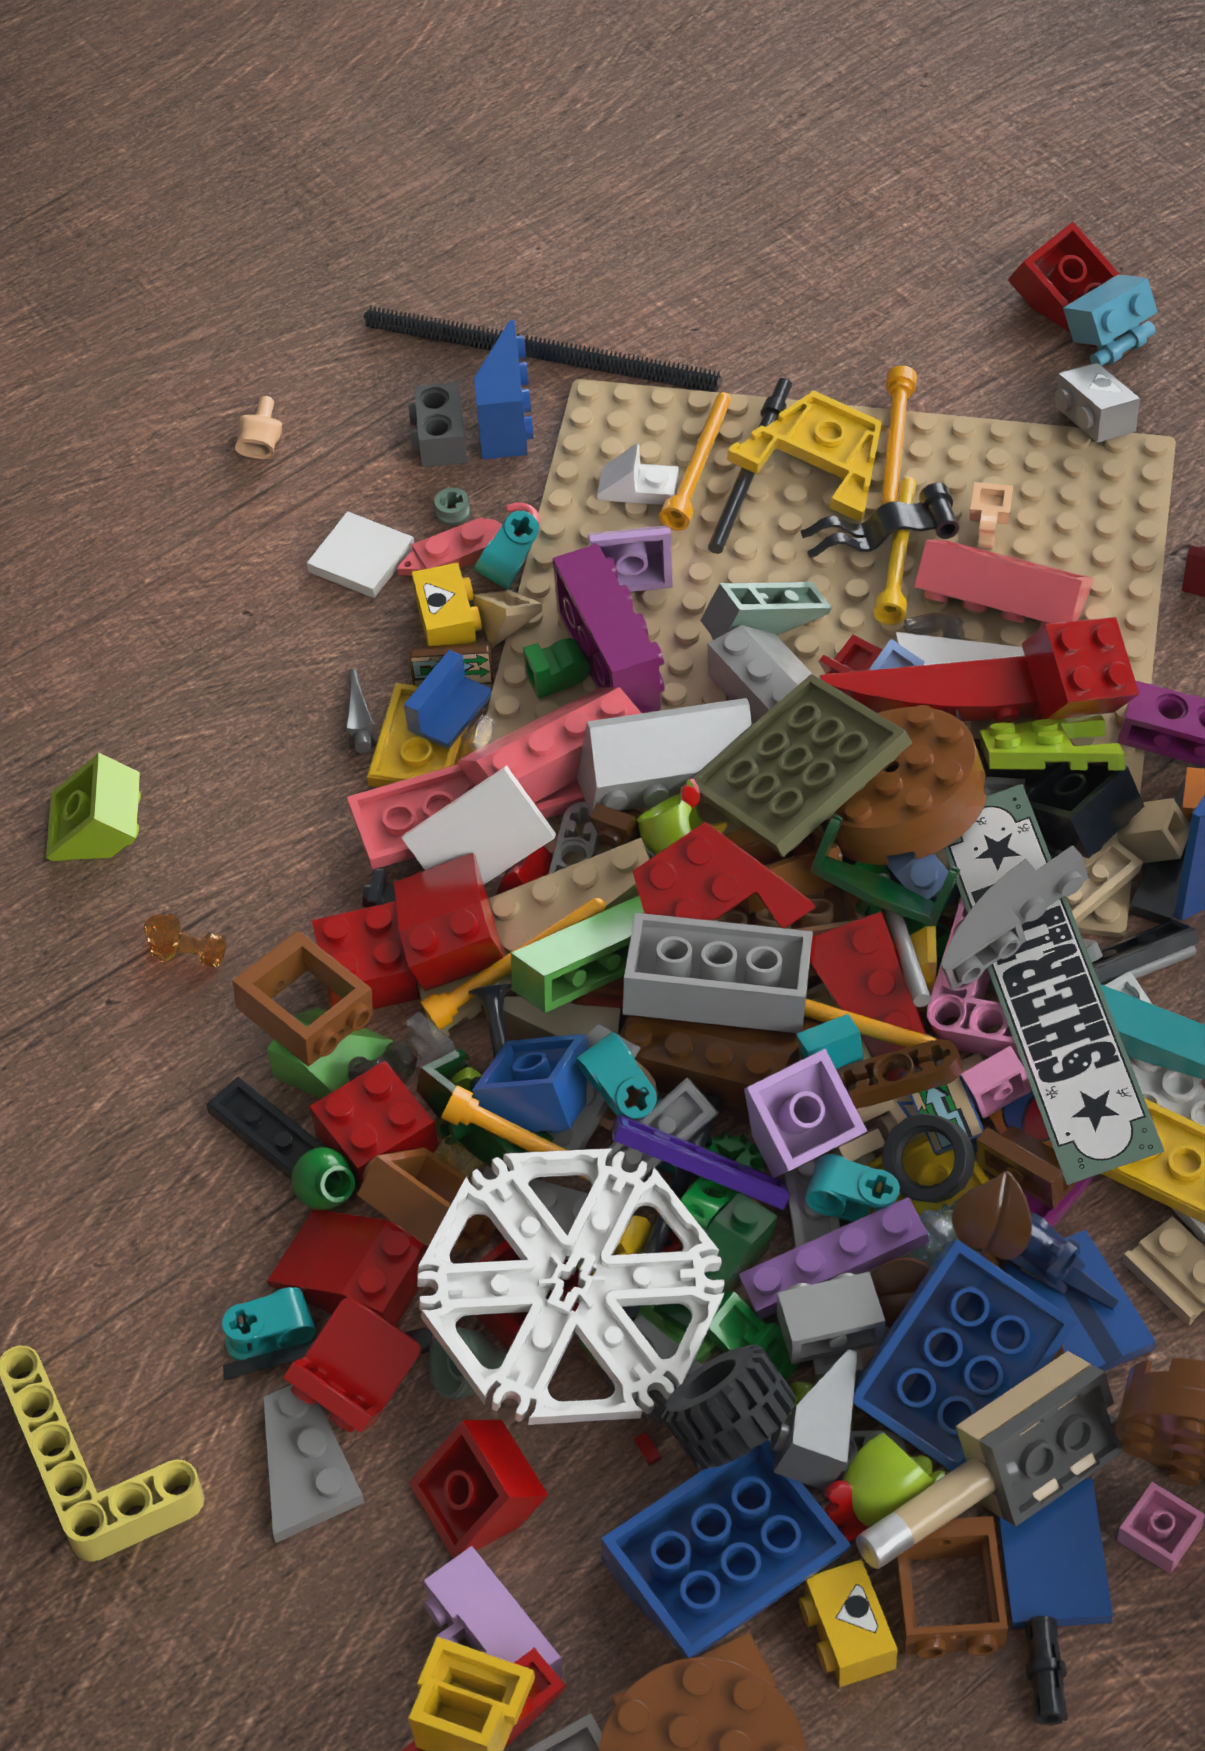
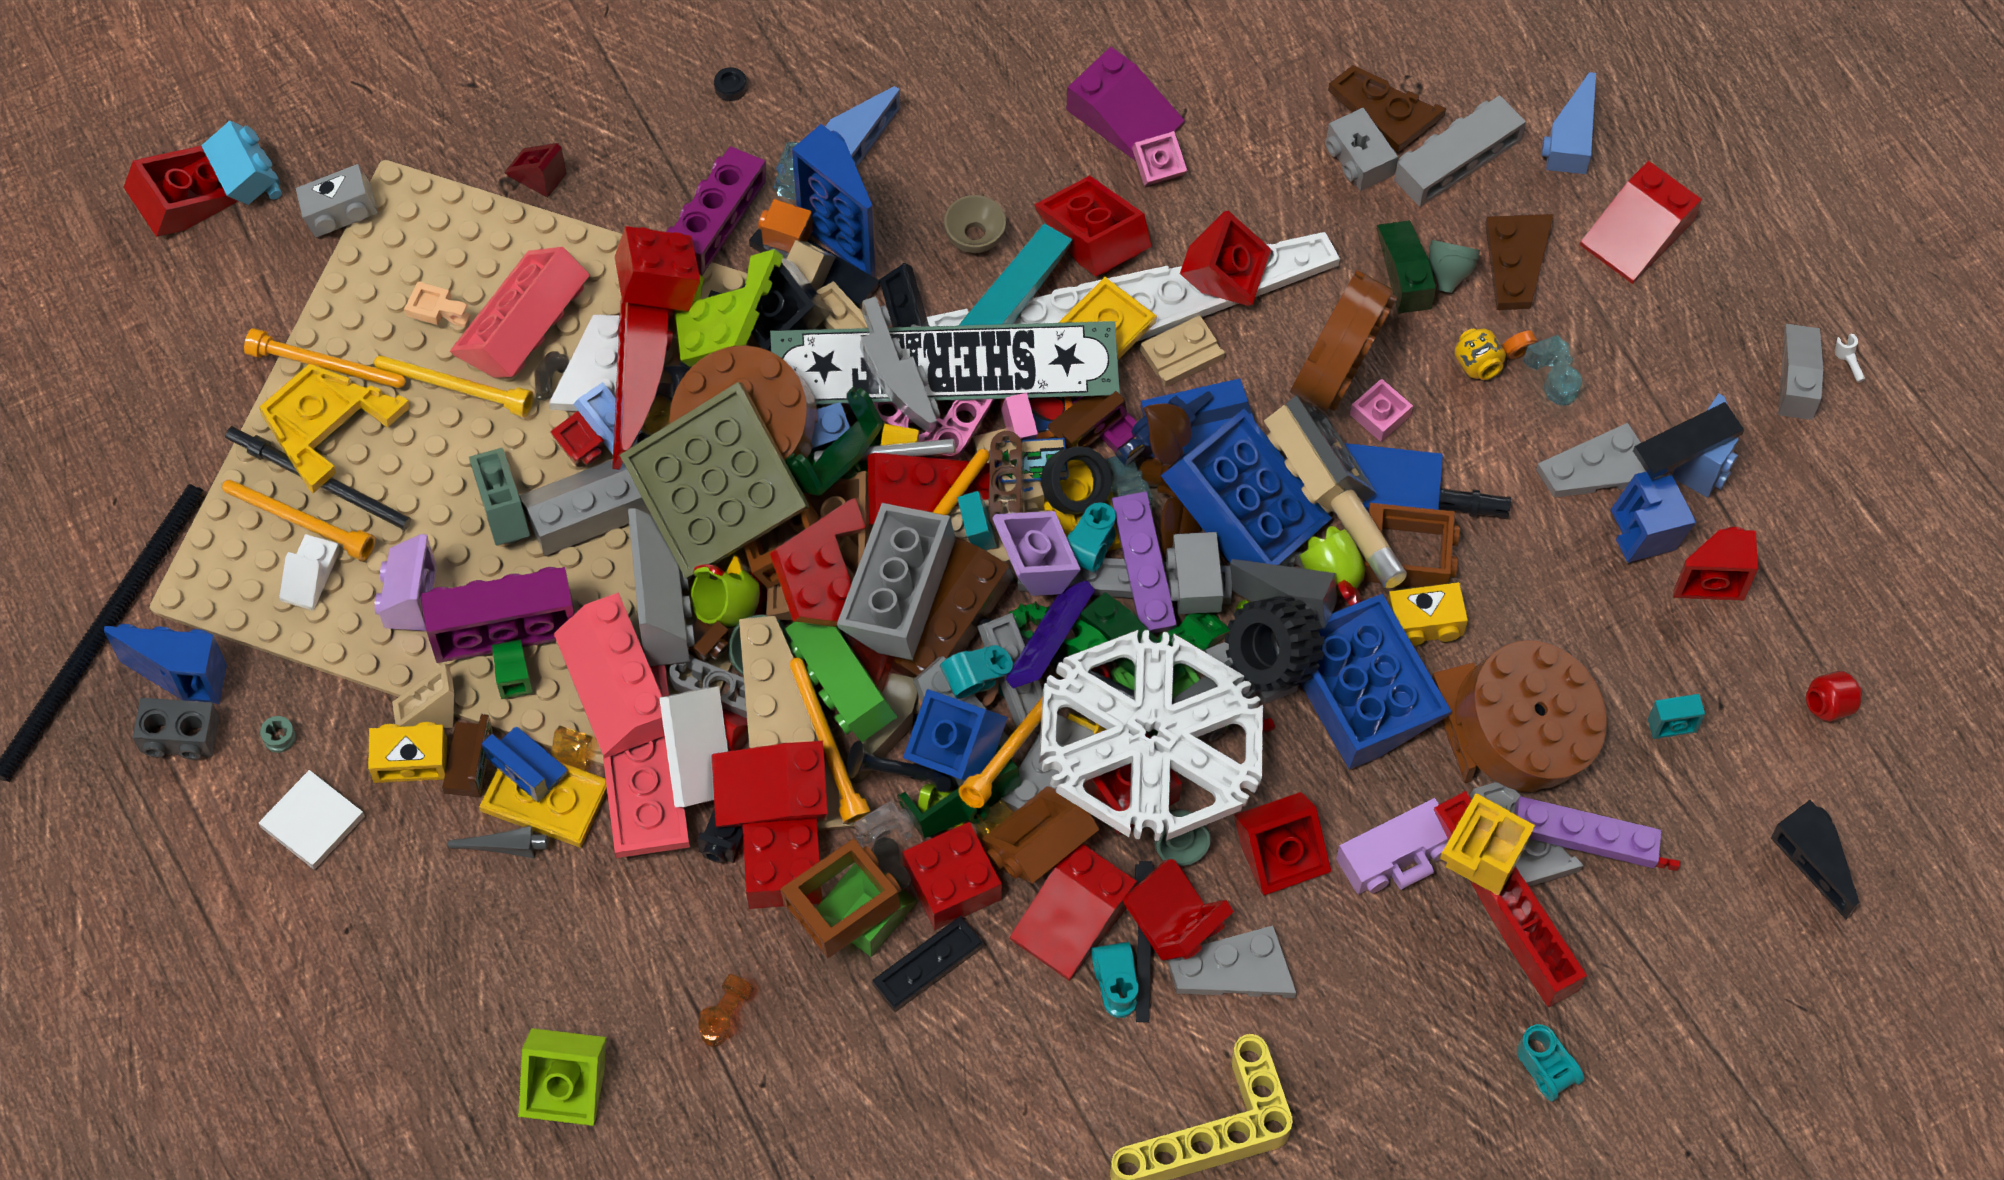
camera: 85 degrees left, 10 degrees up
(259, 432) = (124, 891): light nougat piece -> none
(323, 1178) = (997, 916): green piece -> none
(457, 545) = (326, 727): coral plate -> none
(507, 552) = (359, 692): teal piece -> none
(930, 513) = (426, 381): black flag -> none

